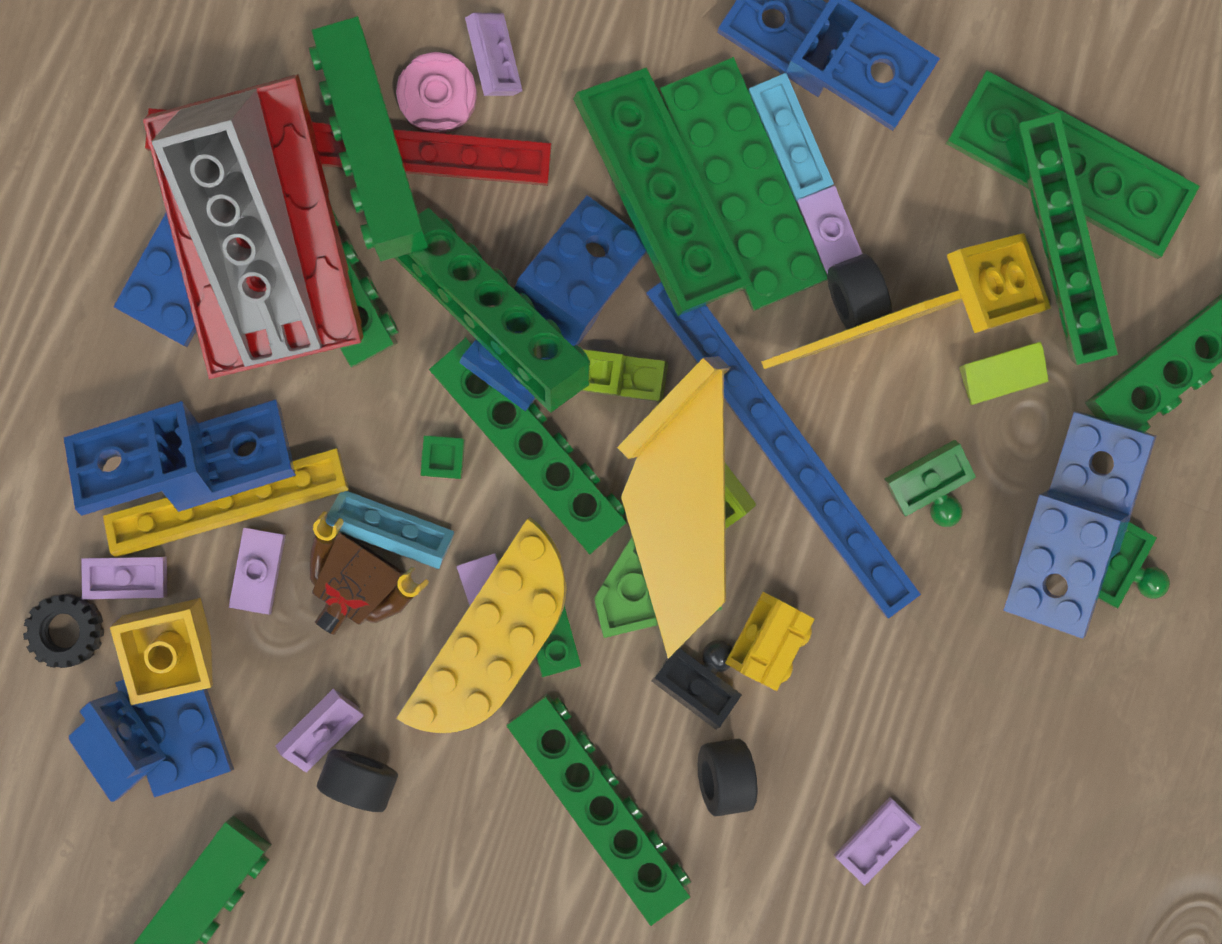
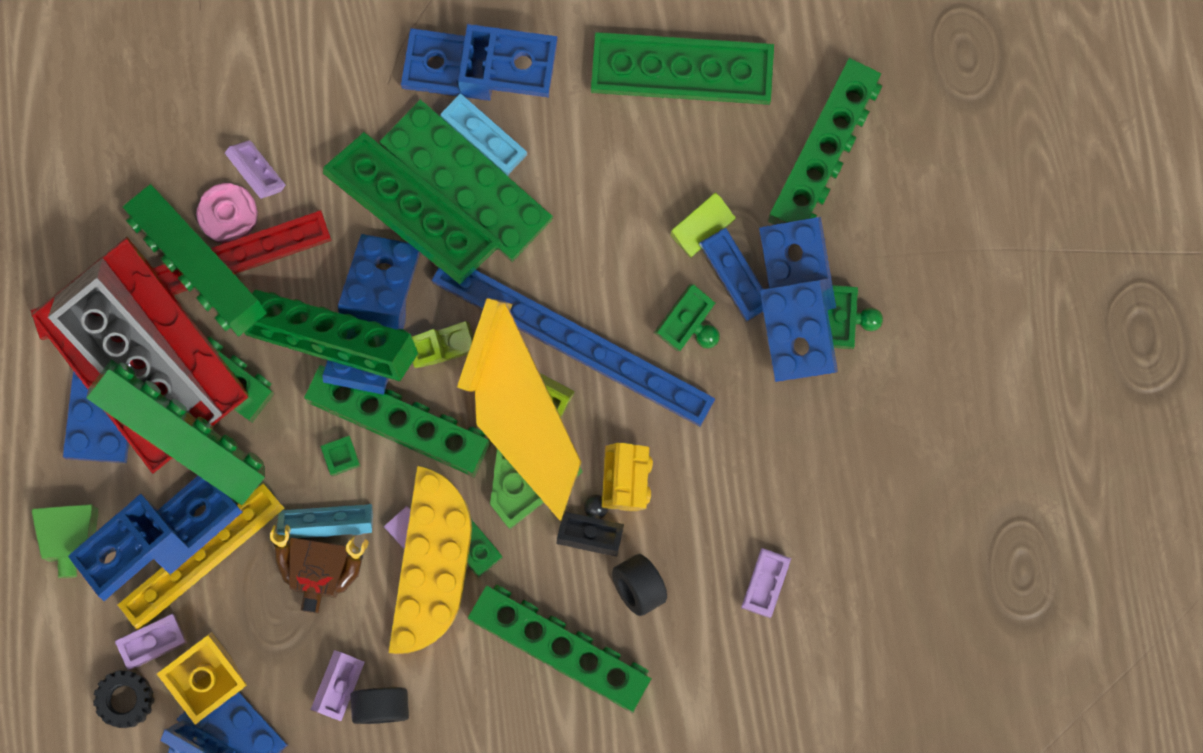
camera: 25 degrees left, 10 degrees down
(75, 401) = (62, 531): none -> bright green torso
(254, 345) = (176, 431): none -> green brick
(257, 571) = (244, 595): lavender plate -> none
(829, 227) = (540, 184): lavender plate -> none
(858, 291) = (577, 215): black tyre -> none
(993, 281) = (663, 167): yellow piece -> none
(1015, 451) = (734, 273): none -> blue tile
(1065, 238) = (697, 115): green brick -> none

